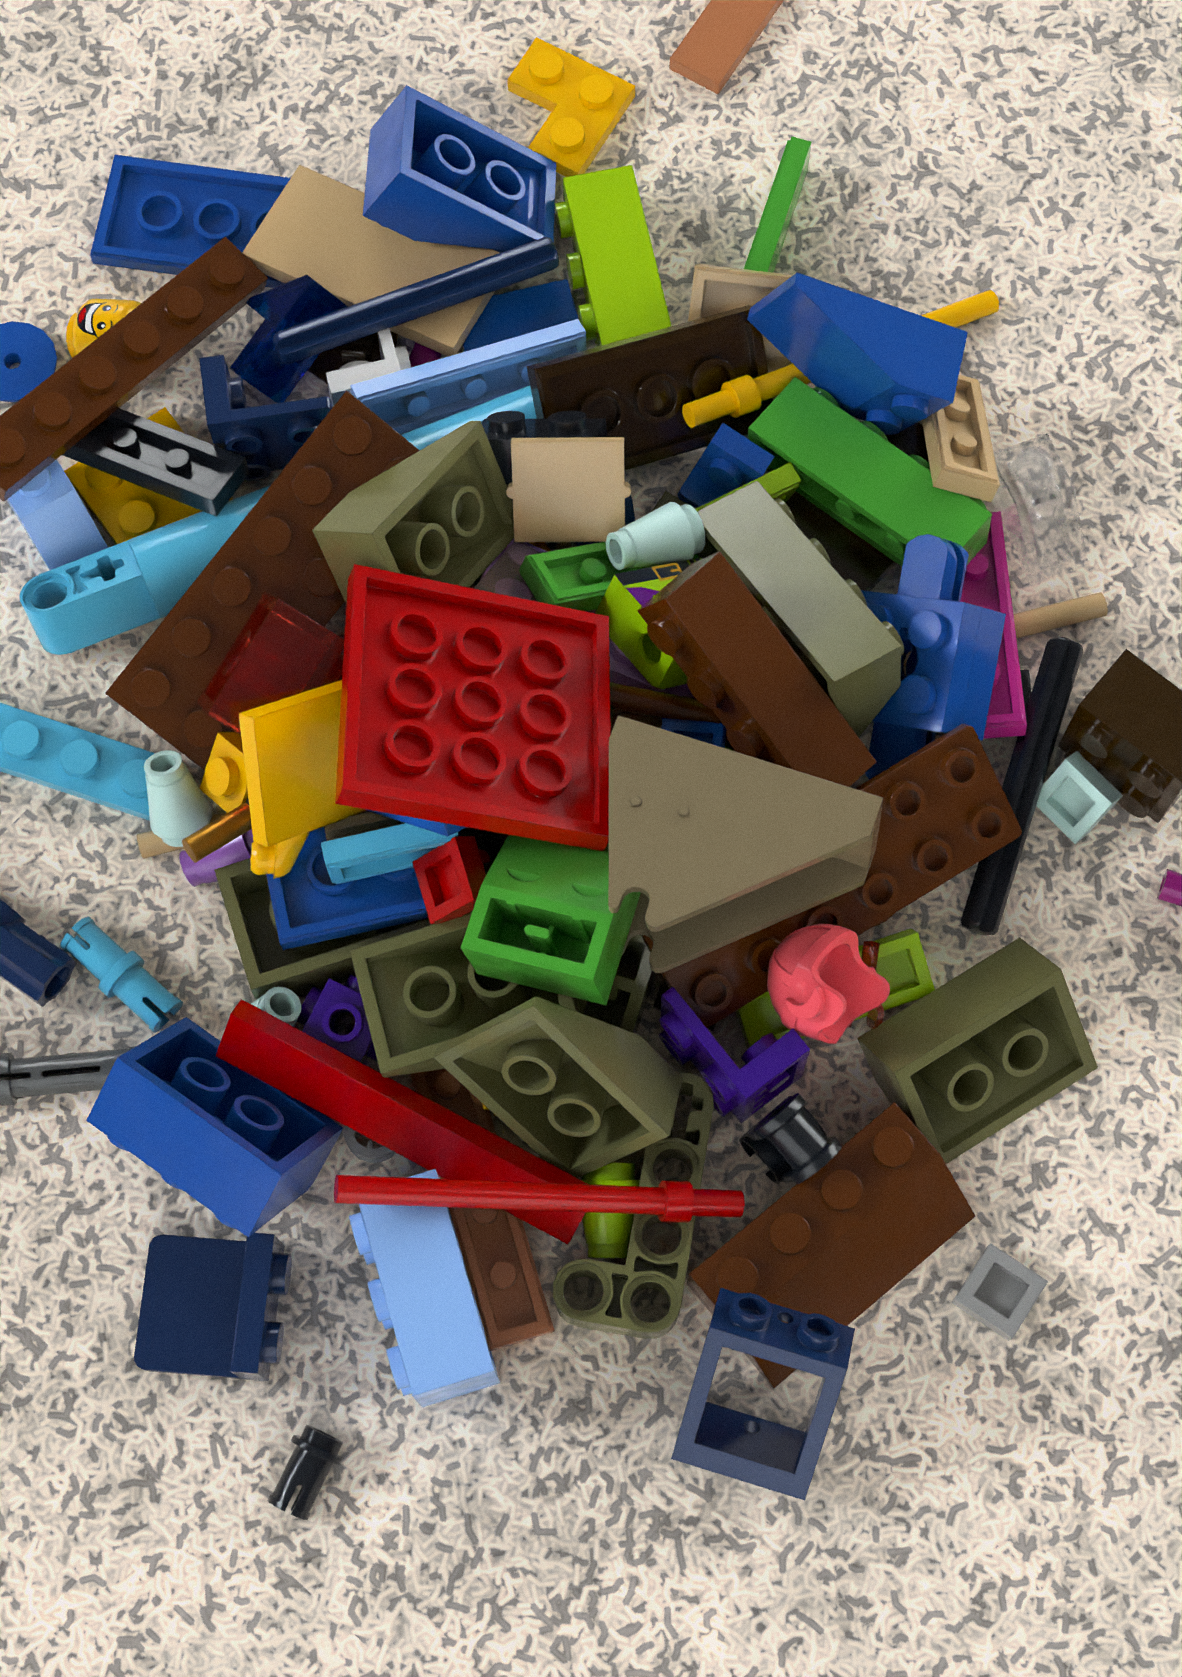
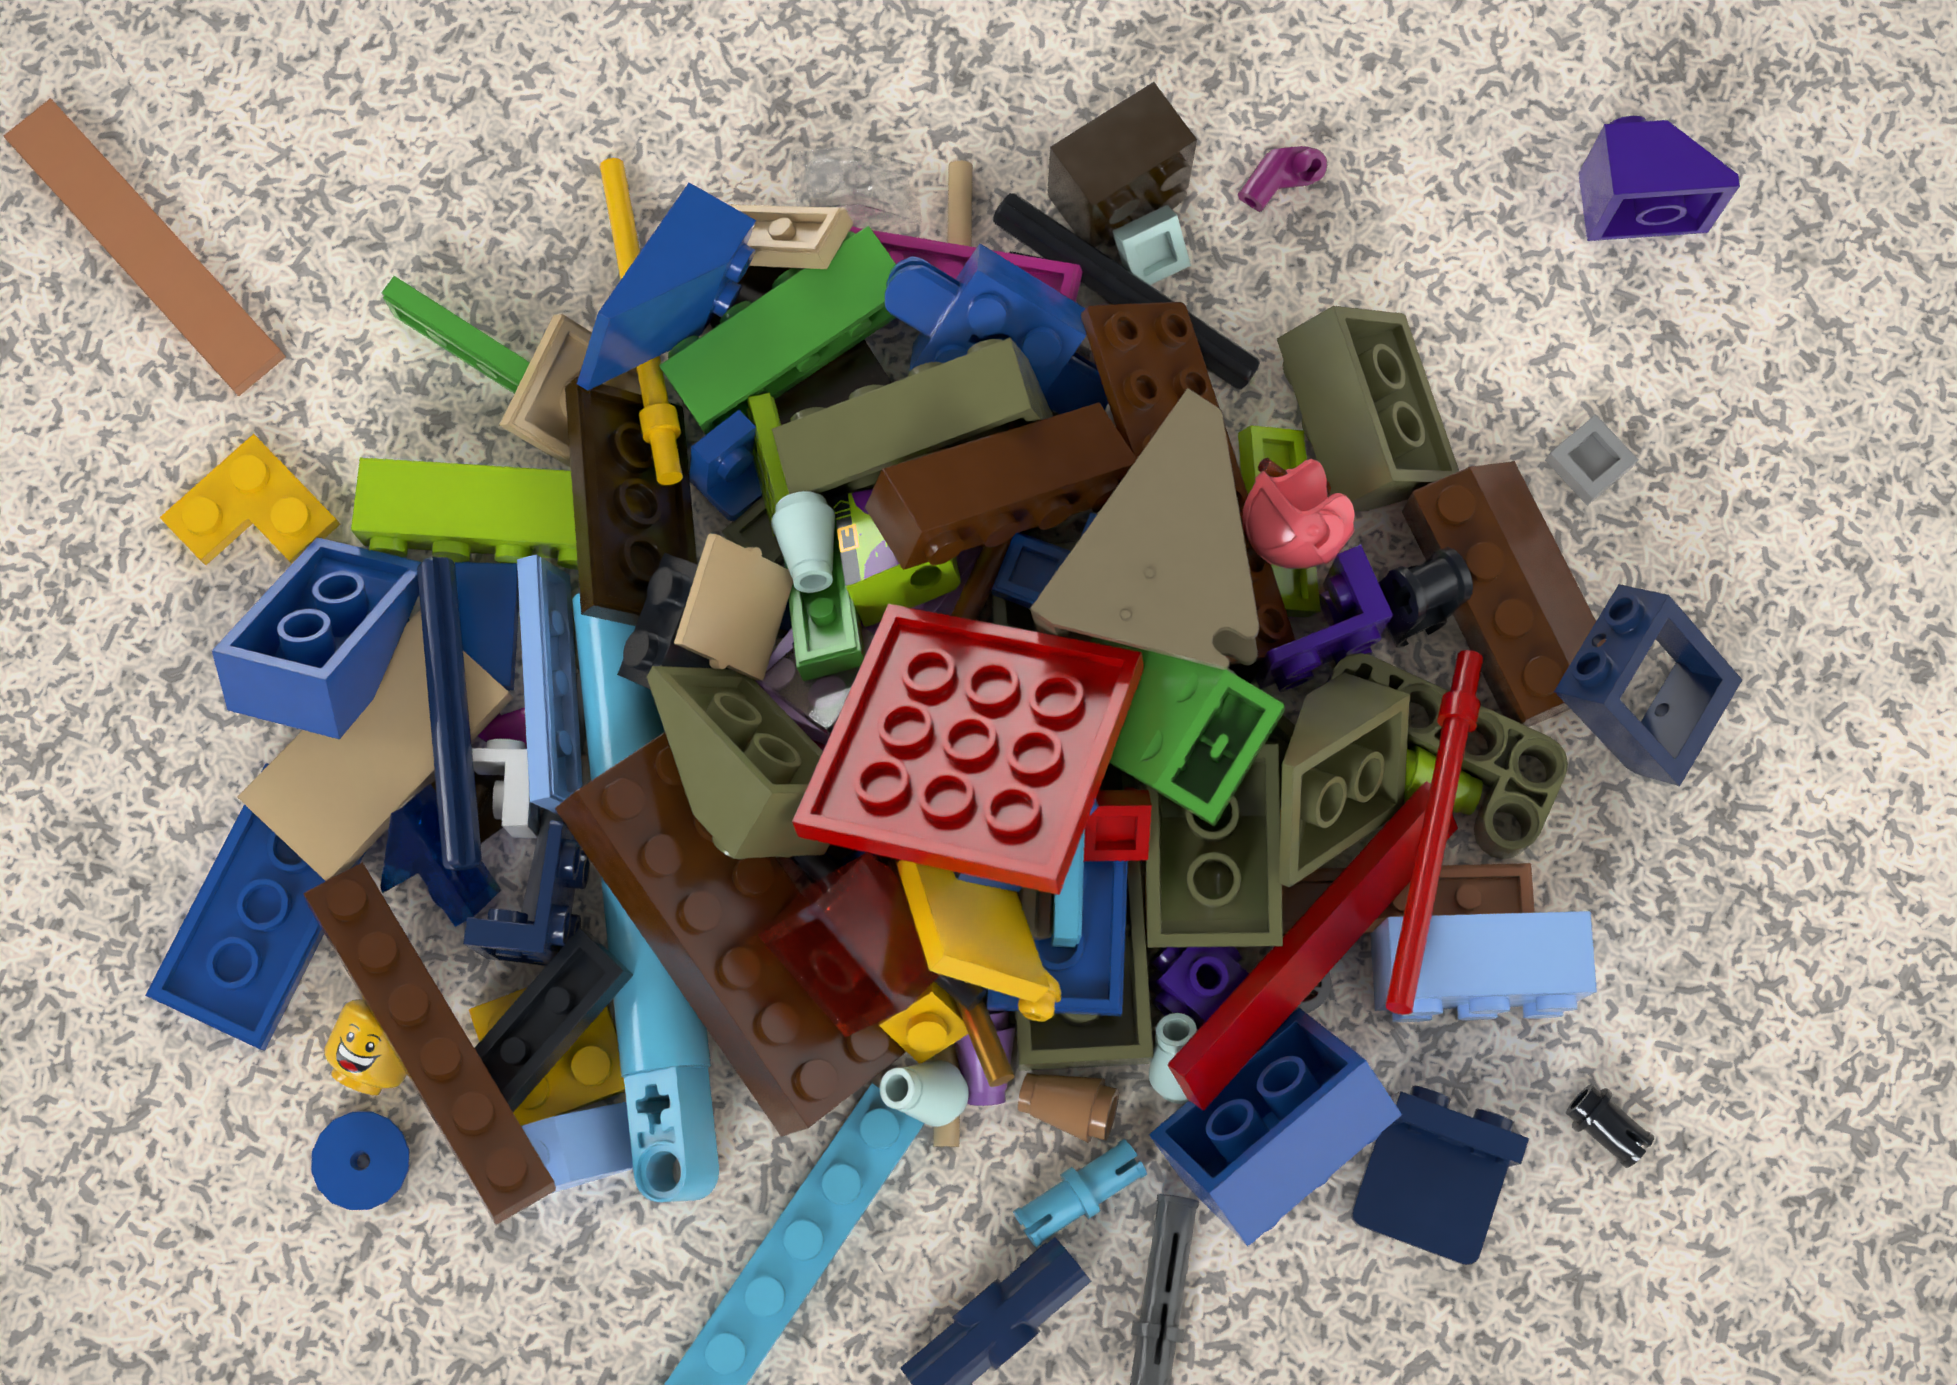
camera: 75 degrees left, 5 degrees up
(202, 945) = (1071, 1104): none -> medium nougat cone

